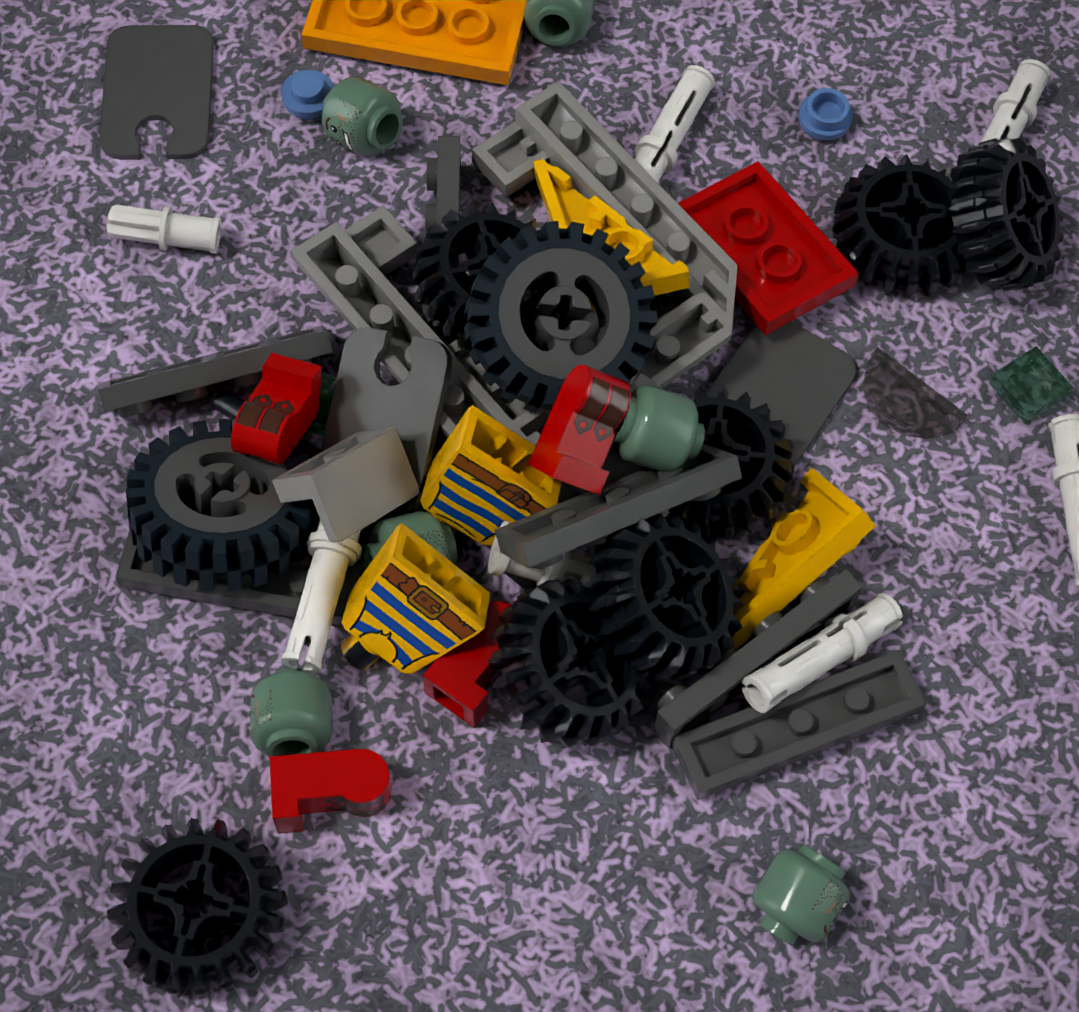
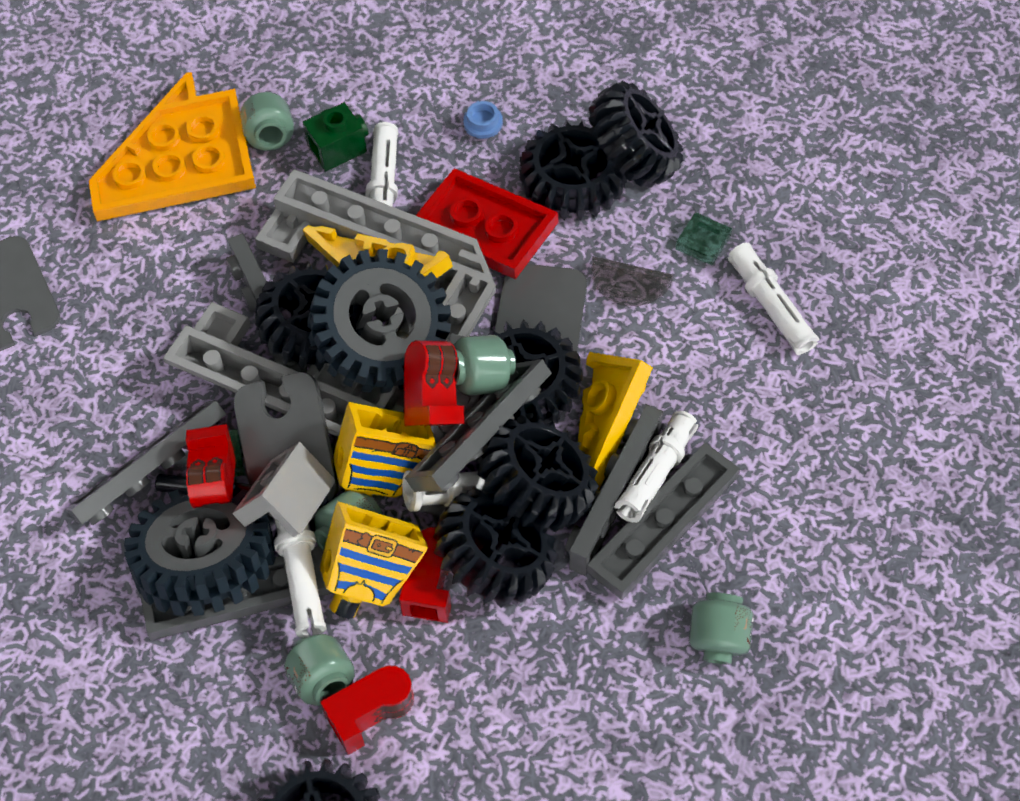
camera: 20 degrees left, 5 degrees down
(164, 228) = (59, 383): white axle -> none
(305, 93) = (117, 250): medium blue plate -> none
(362, 116) = (164, 249): sand green head -> none
(634, 60) = (335, 136): none -> dark green brick
(1025, 88) = (605, 65): white pin -> none

